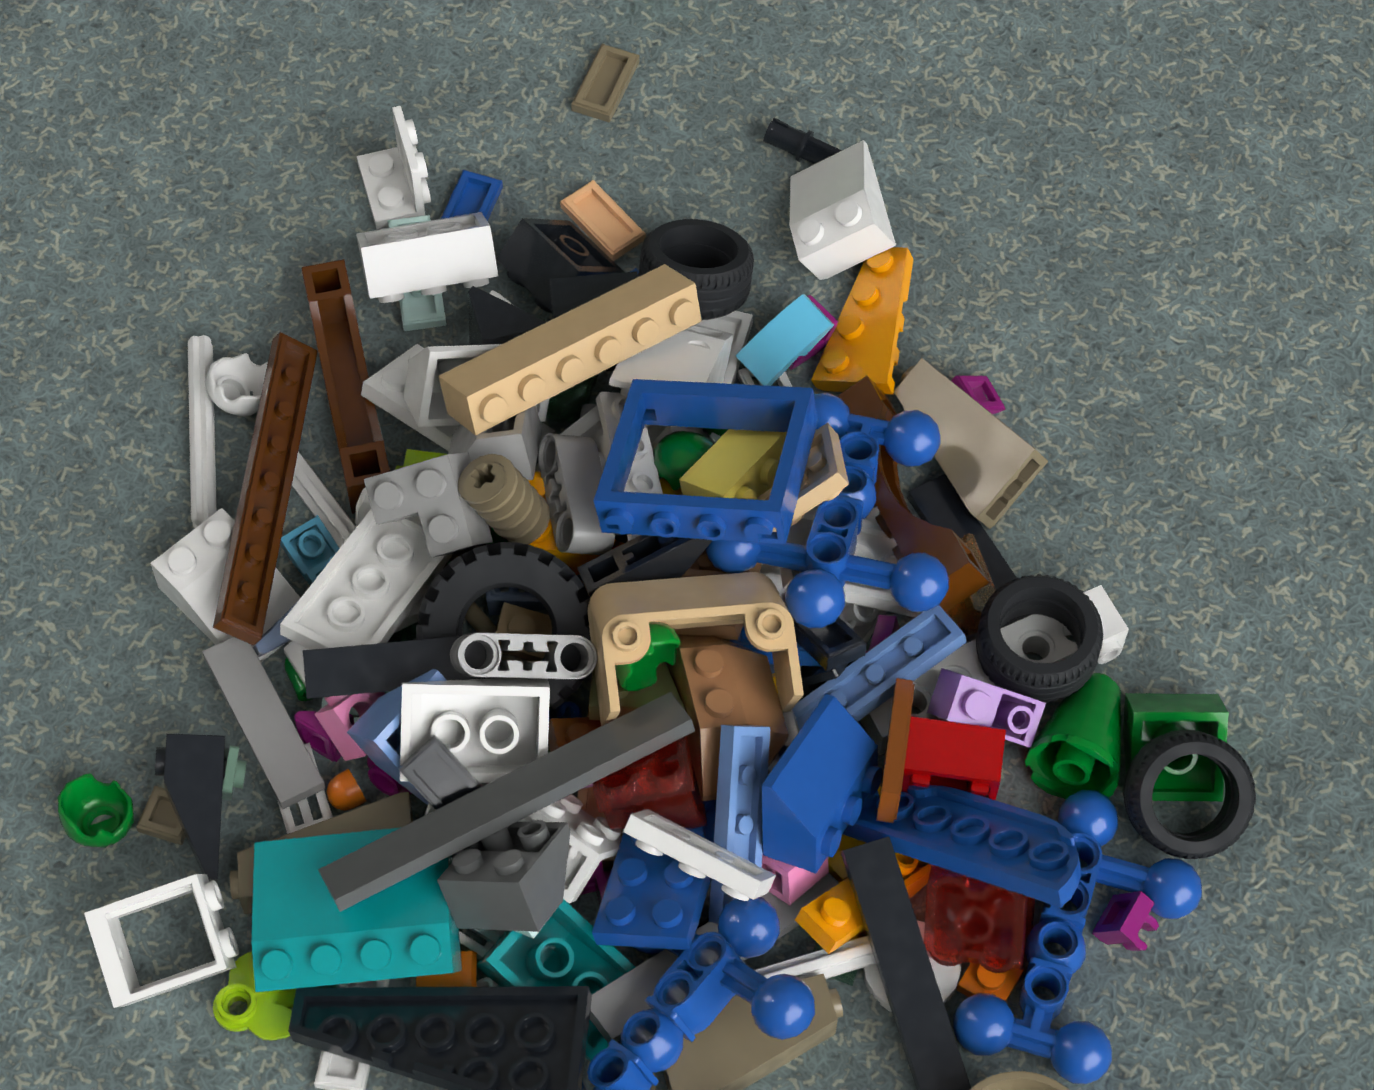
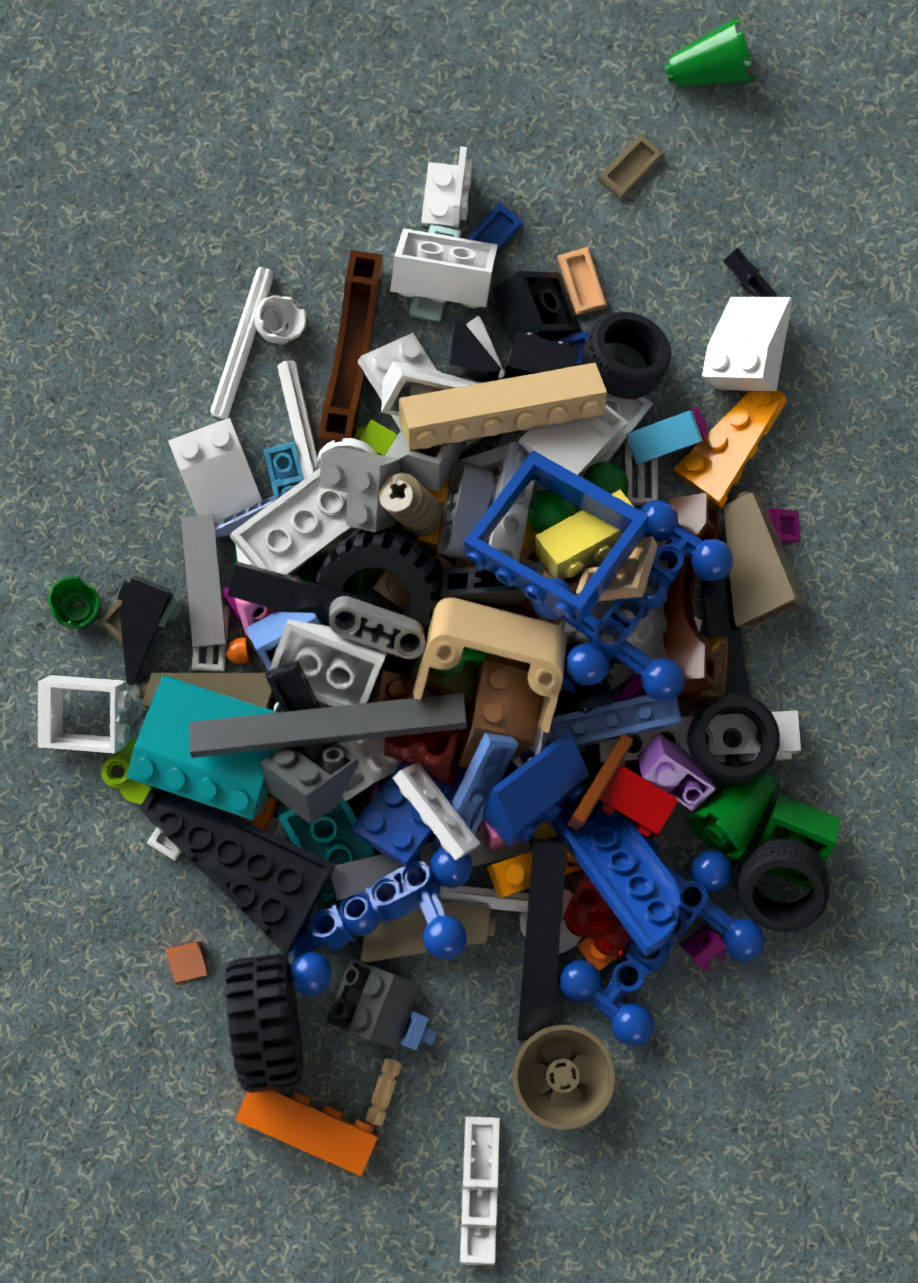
camera: 20 degrees right, 20 degrees up
(265, 490) = (265, 412): reddish brown tile -> none

